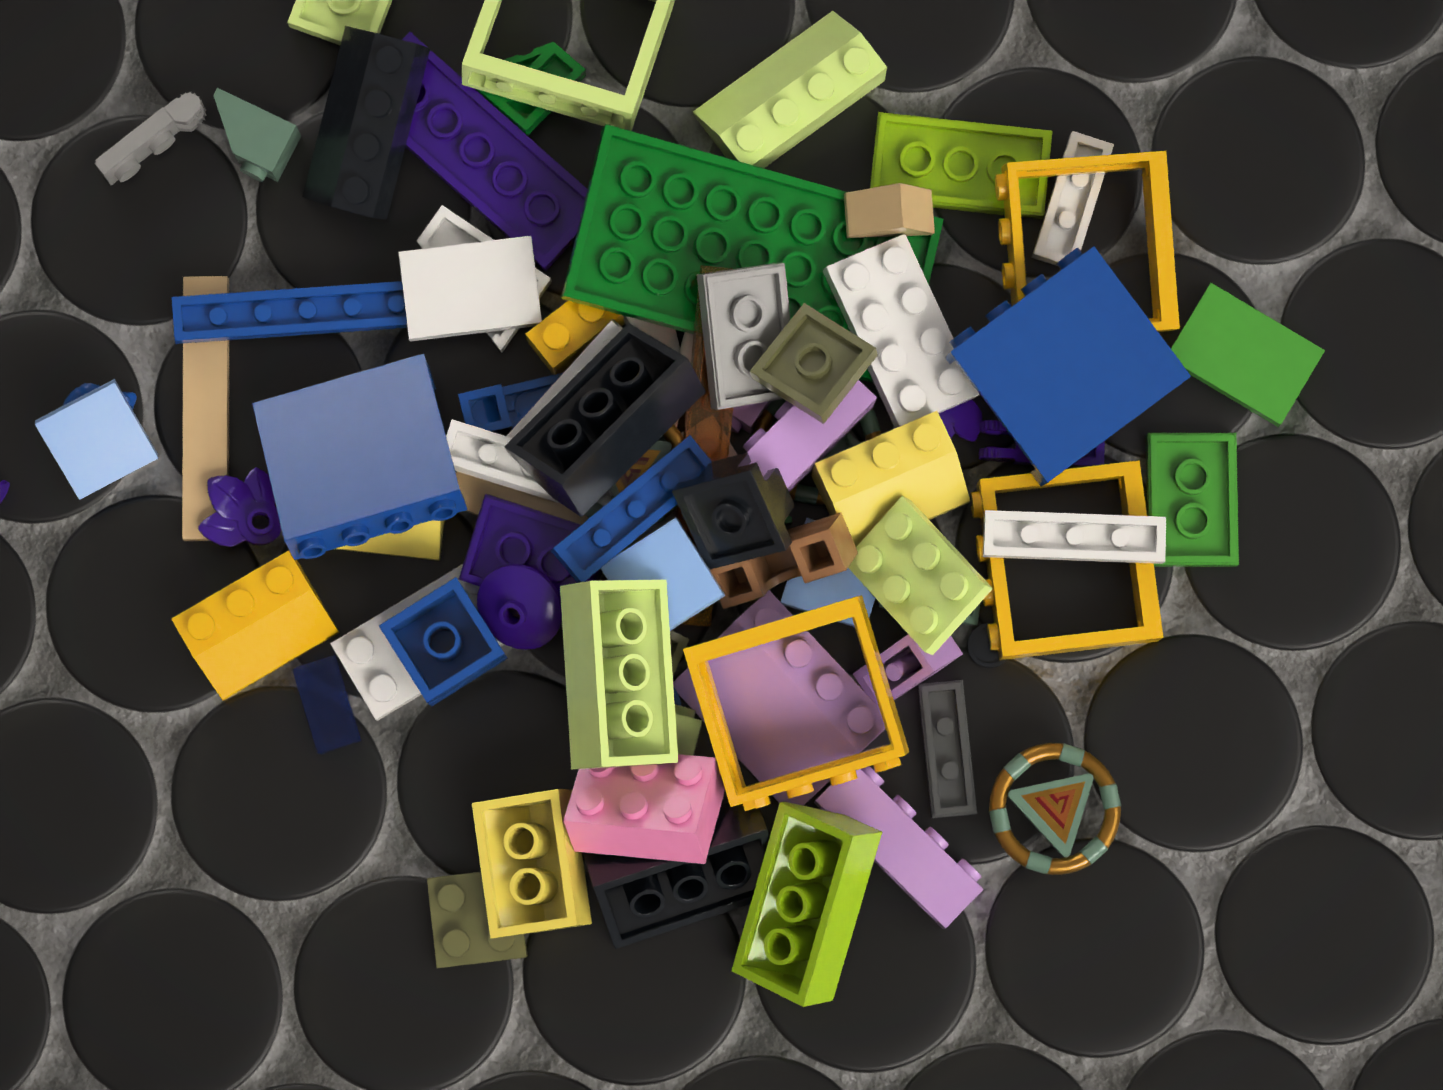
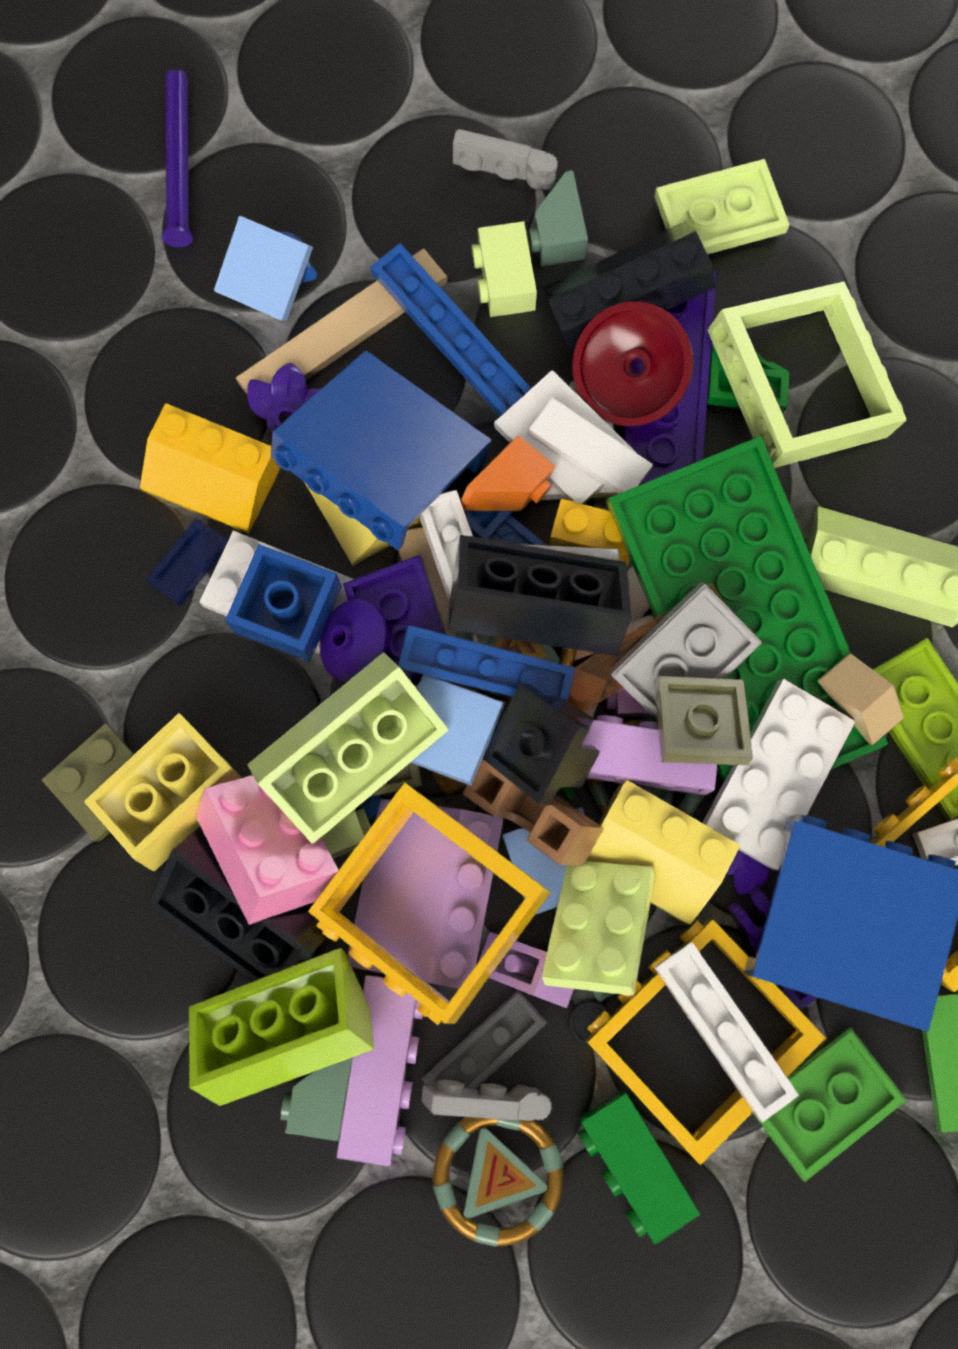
camera: 55 degrees right, 5 degrees down
(262, 218) = (506, 269): none -> yellowish green brick
(456, 208) = (606, 358): none -> dark red dish
(477, 364) = (510, 480): none -> orange slope
(499, 274) = (589, 447): none -> white tile
(889, 913) = (318, 1103): none -> sand green slope
(991, 772) = (488, 1102): none -> light grey hinge
(1128, 691) = (636, 1168): none -> green brick

